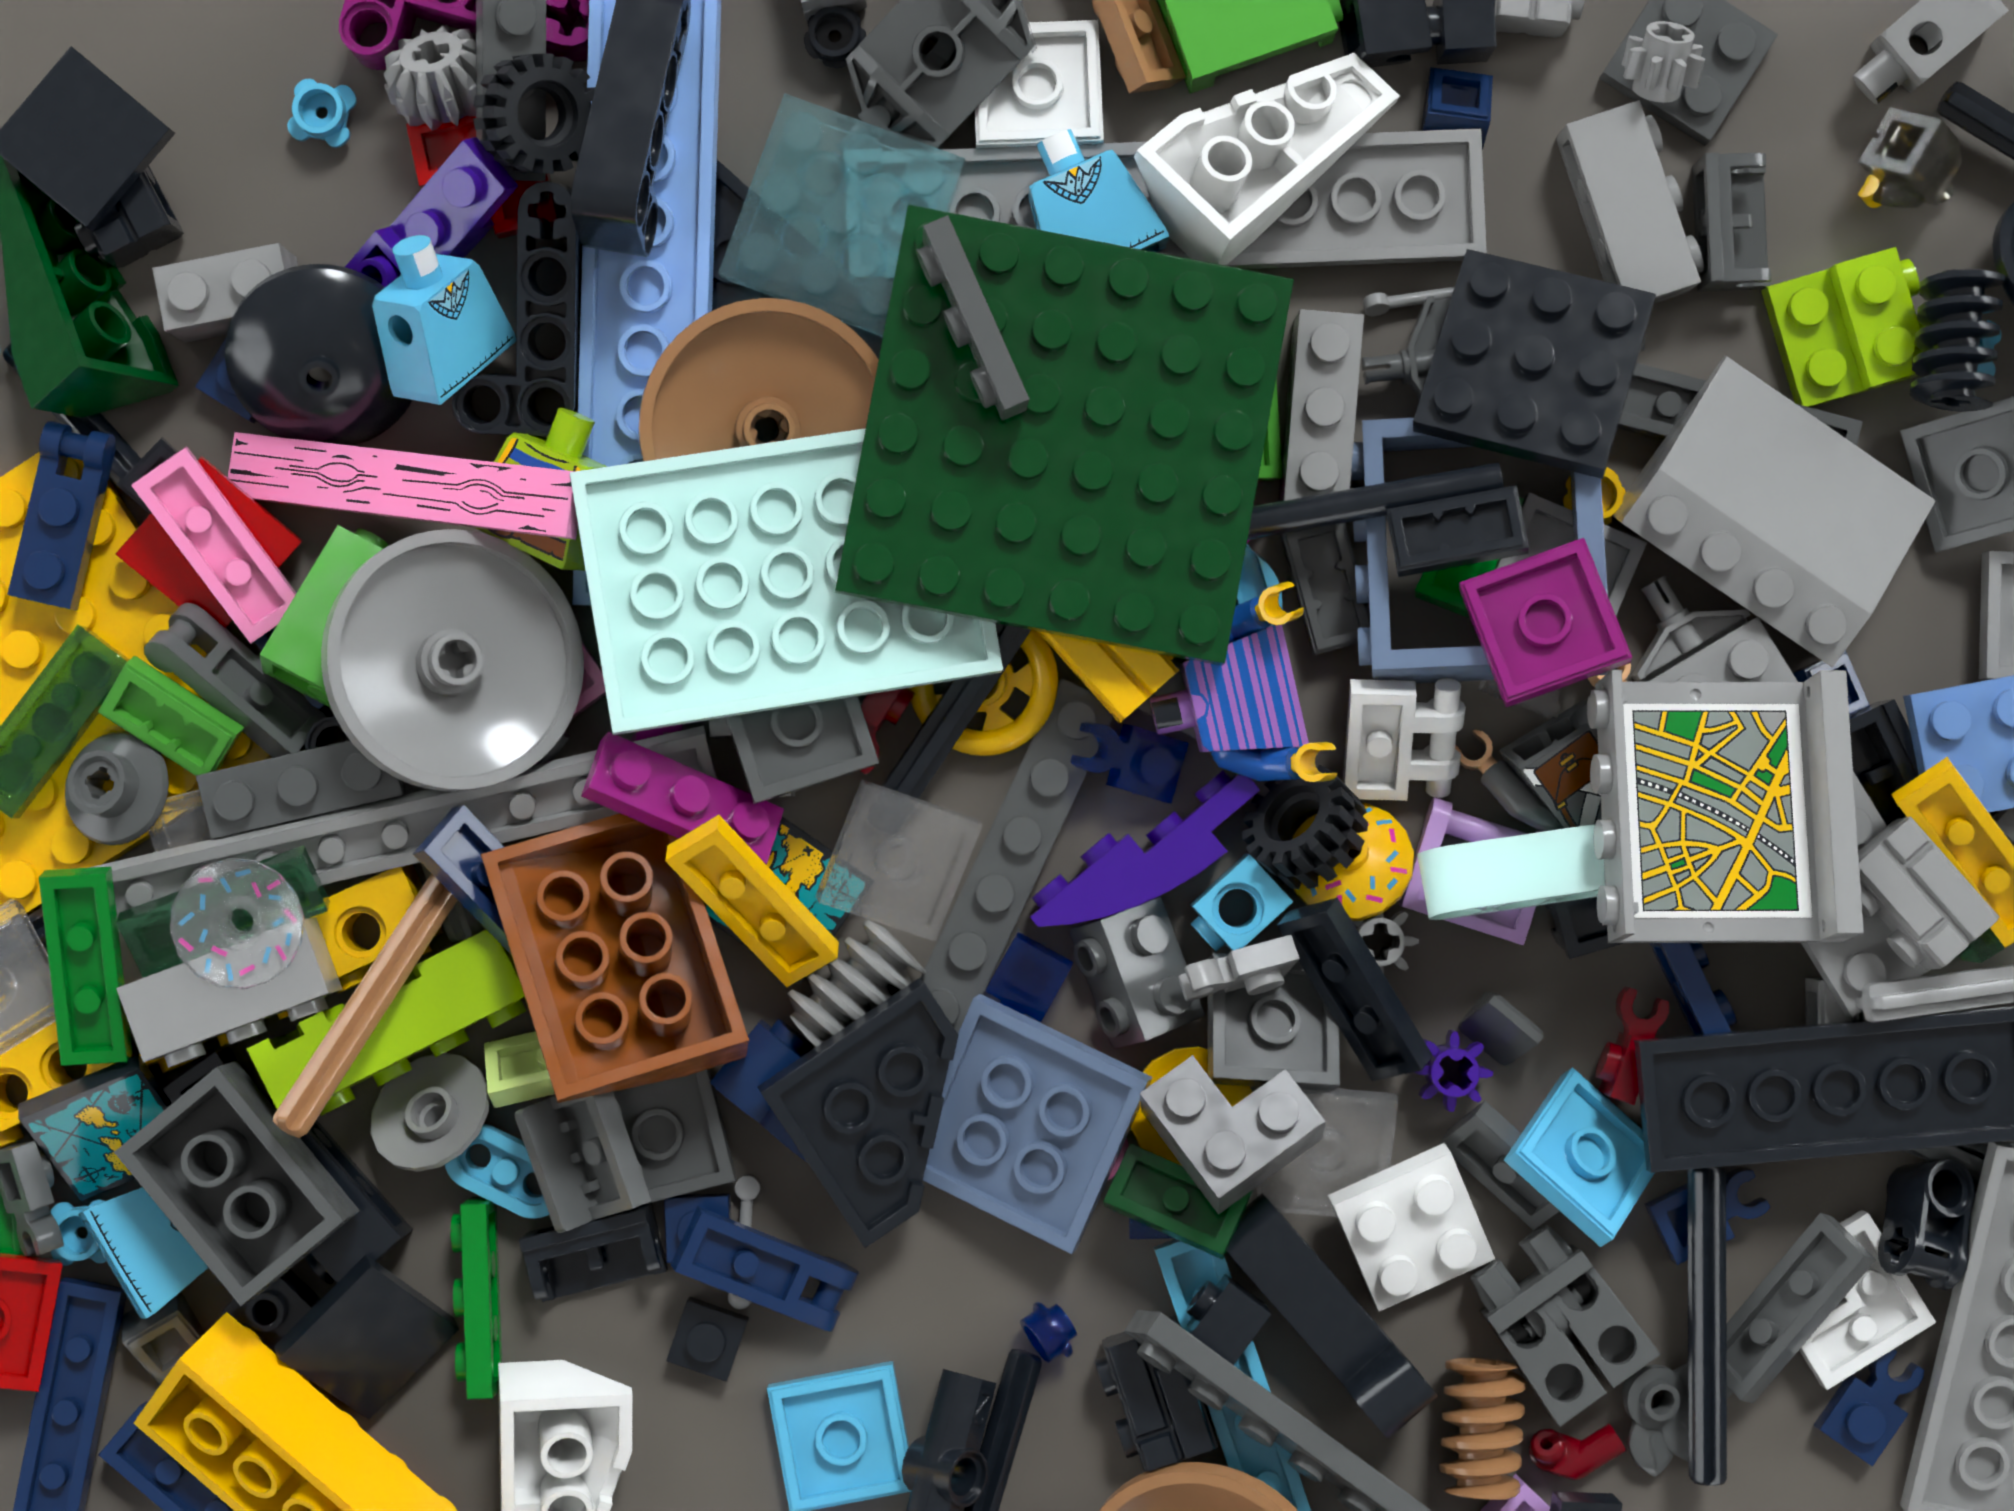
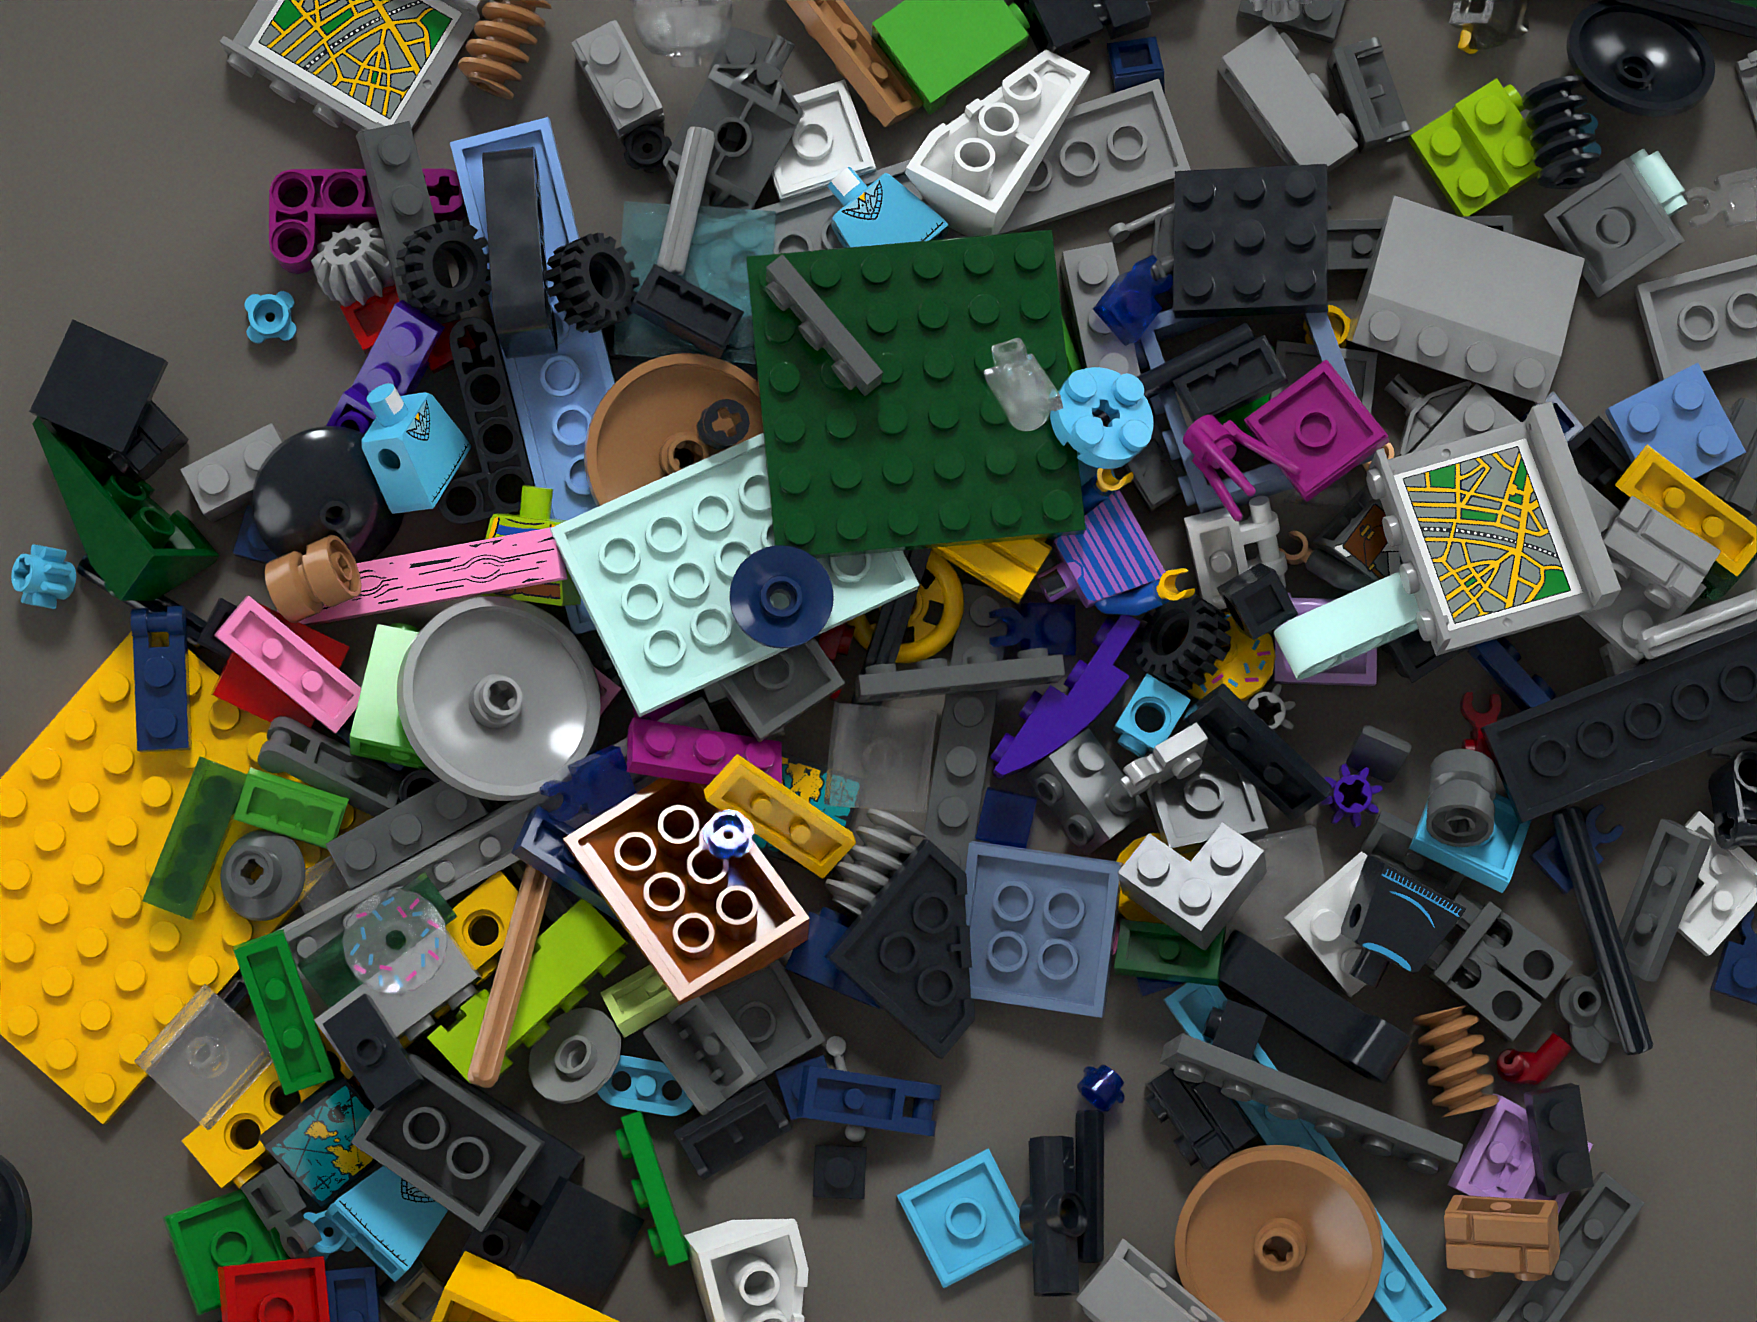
camera: 25 degrees left, 5 degrees down
(171, 1052) = (373, 1052): none -> black plate
(273, 450) = (308, 581): none -> medium nougat wheel
(542, 798) = (595, 784): none -> clear blue plate
(686, 893) = (732, 822): none -> clear blue plate
(687, 189) = (571, 273): none -> black tyre
(817, 250) = (686, 311): none -> black plate
(831, 387) = (727, 409): none -> black bush
(835, 606) = (785, 572): none -> dark blue dish
(857, 114) = (686, 200): none -> light grey axle
(992, 786) = (979, 674): none -> dark grey plate
(1197, 464) = (1021, 386): none -> clear hips
(1316, 515) = (1120, 399): none -> medium azure plate
(1363, 395) = (1129, 301): none -> clear blue plate
(1409, 807) = (1257, 601): none -> black brick
(1411, 609) = (1215, 448): none -> magenta plant
(1460, 1244) = (1395, 921): none -> black torso
(1586, 1120) = (1461, 798): none -> dark grey wheel

